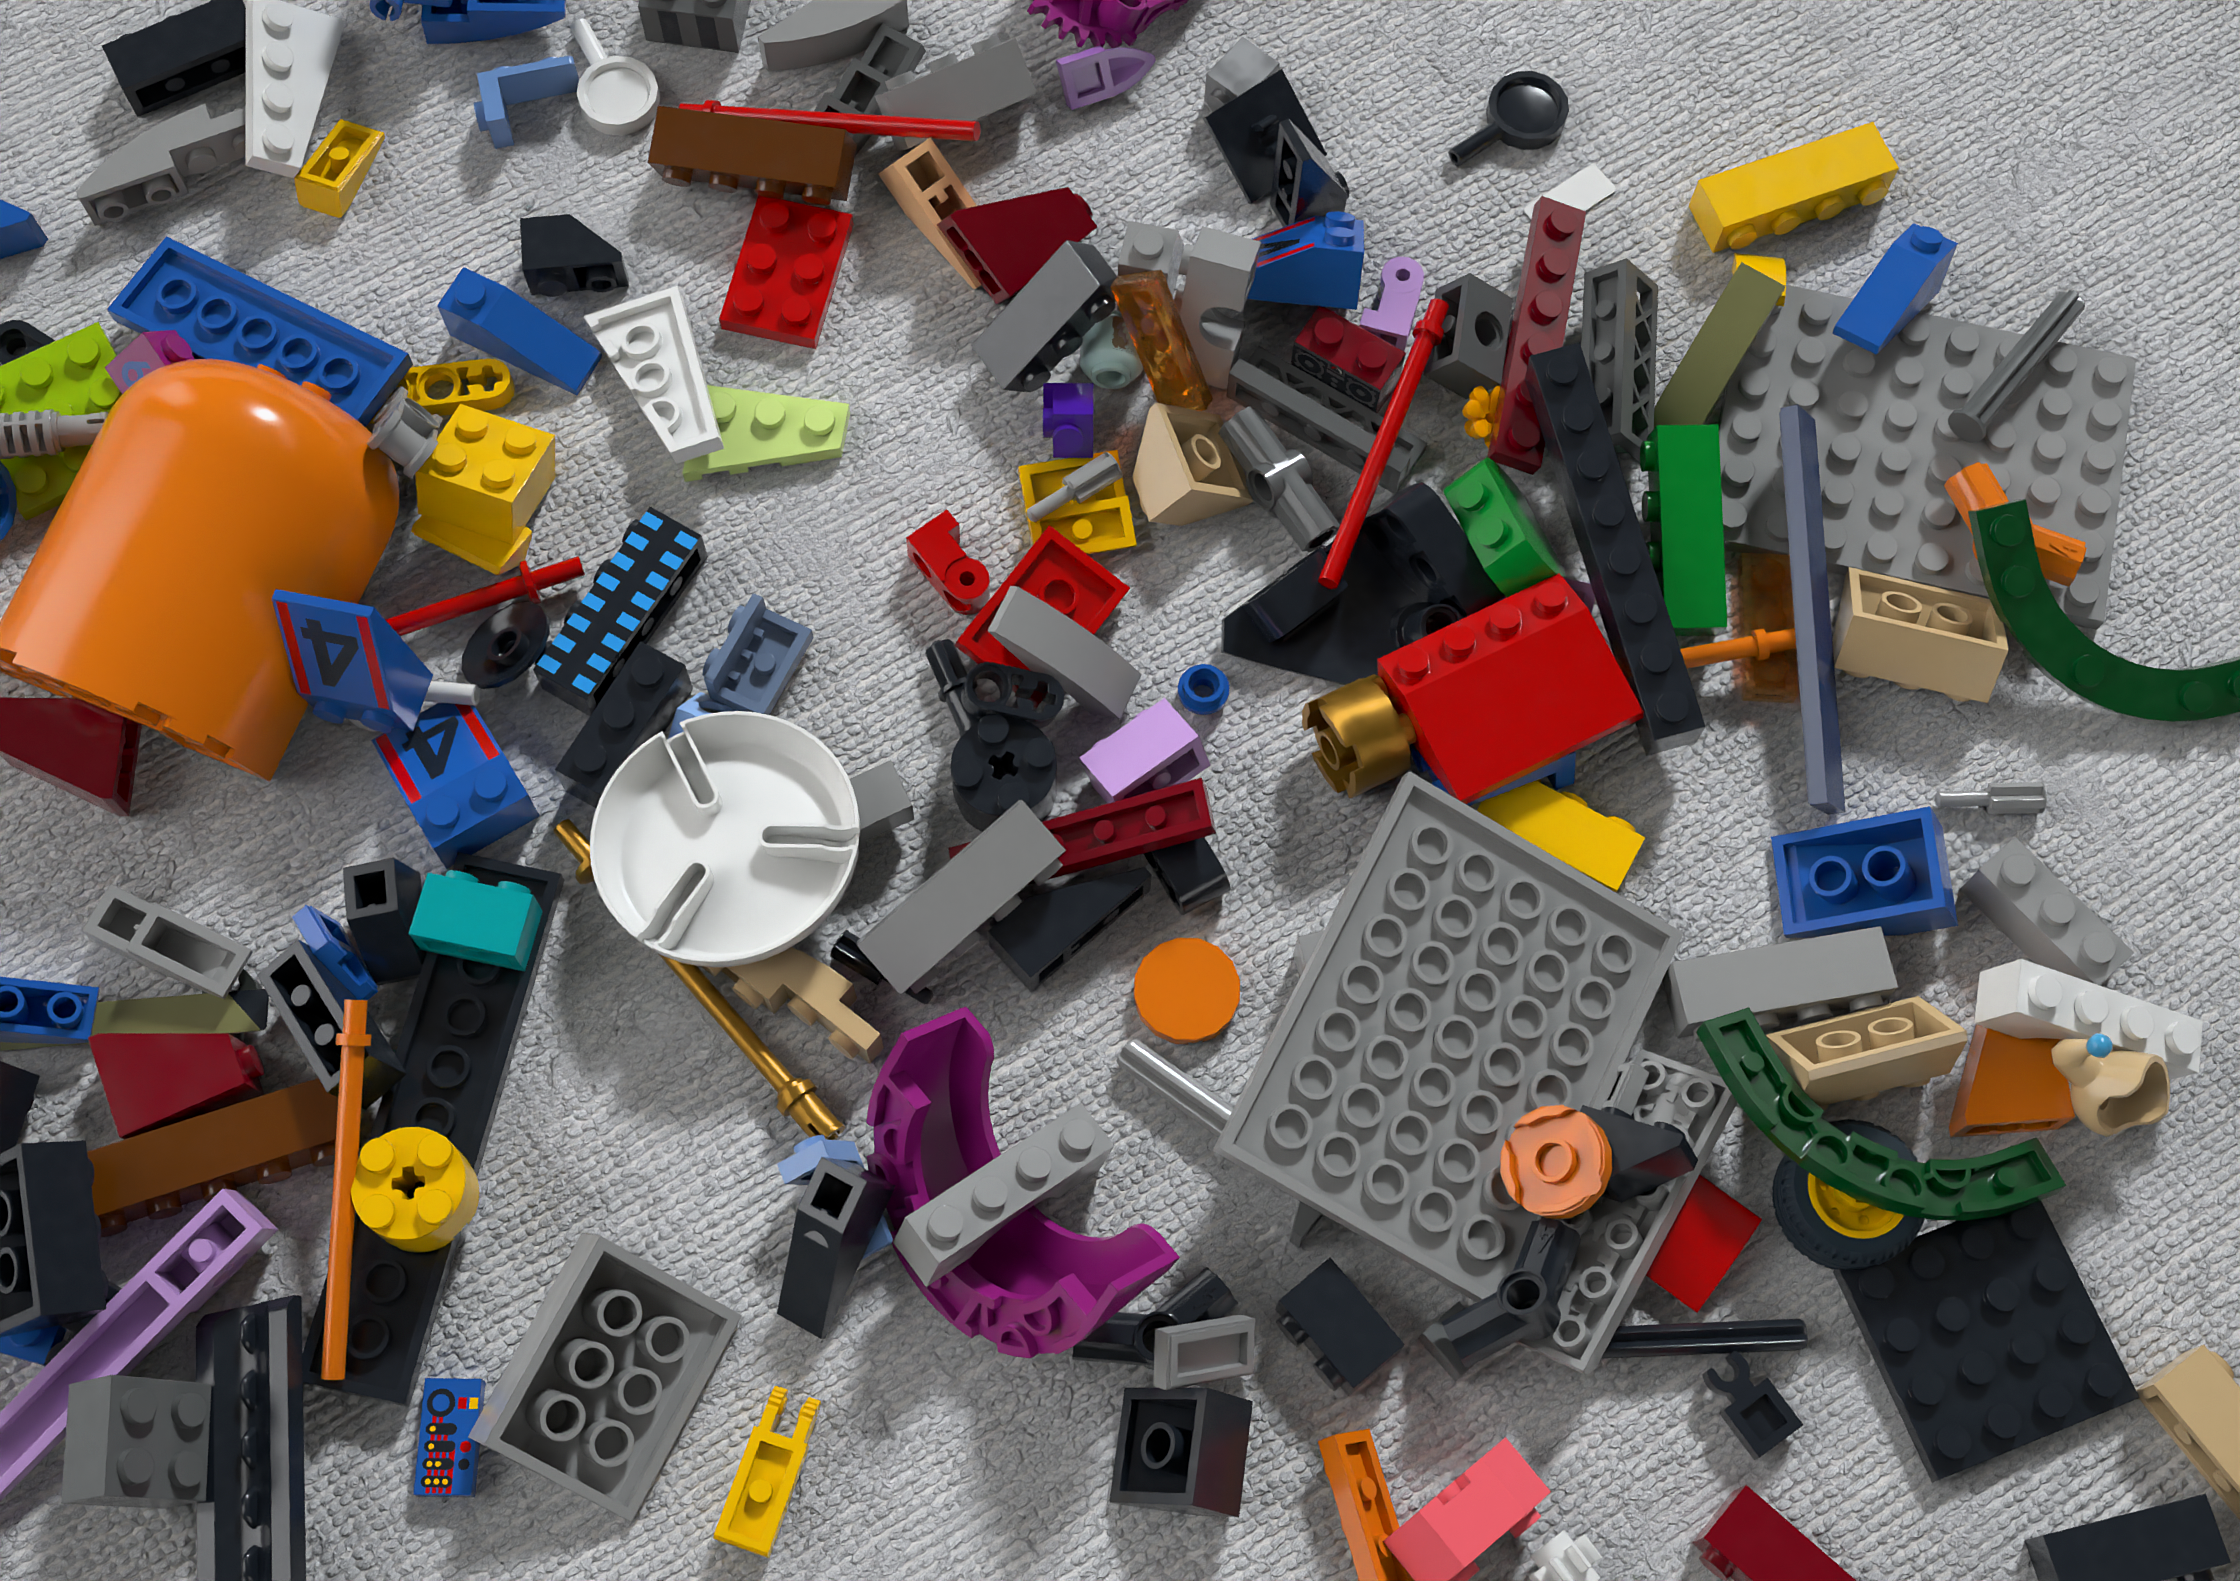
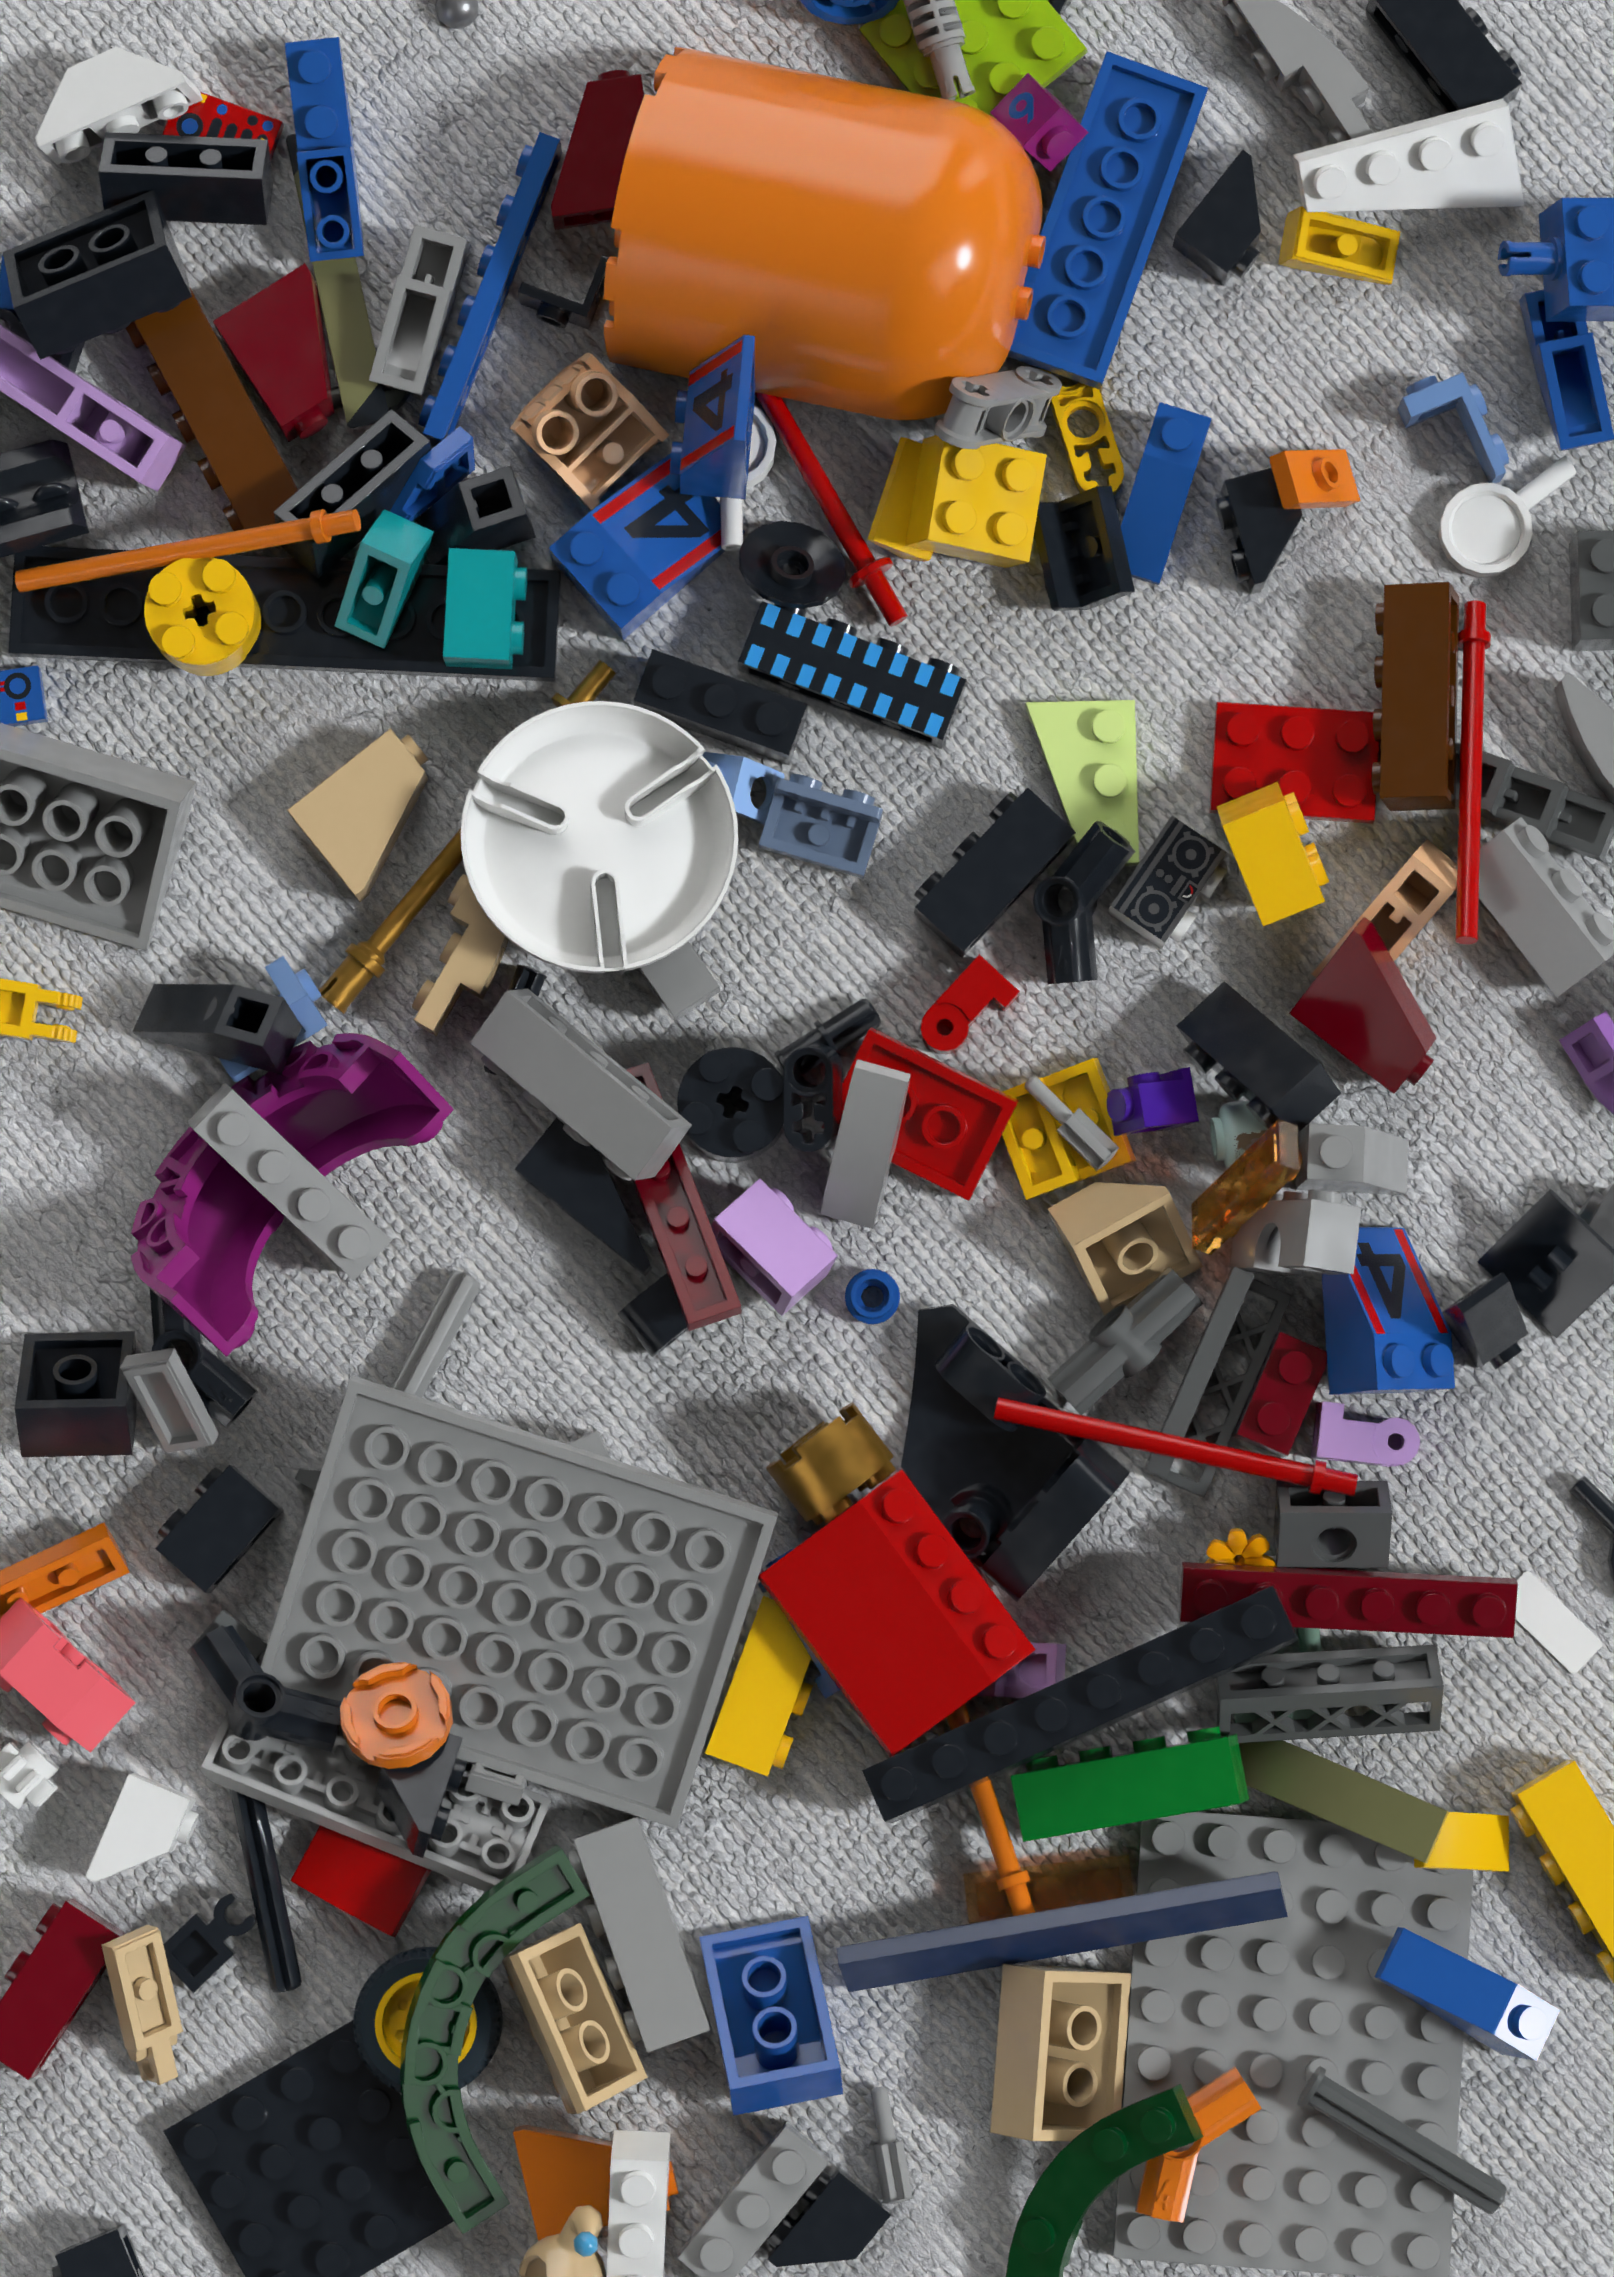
camera: 85 degrees right, 15 degrees up
(149, 864) = (498, 269): none -> blue plate
(205, 813) = (560, 310): none -> black bracket
(293, 243) = (1224, 225): none -> black slope
(326, 806) = (587, 428): none -> light nougat slope
(423, 1009) = (383, 577): none -> teal slope
(539, 202) = (1314, 479): none -> orange plate
(558, 396) = (1082, 550): none -> black bracket
(649, 1075) = (363, 809): none -> tan slope
(660, 365) = (1149, 649): white wing -> none
(831, 522) = (992, 870): none -> black brick
(849, 436) = (1087, 874): none -> black piece
(866, 278) = (1268, 849): none -> yellow brick
(873, 381) = (1168, 883): none -> brick
(1186, 990) = (540, 1329): orange tile -> none
(1502, 528) = (1089, 1588): green brick -> none
(1632, 1453) = (143, 1826): none -> white slope
(1810, 1473) = (144, 2001): none -> tan hinge
(2071, 849) = (832, 2226): none -> black slope

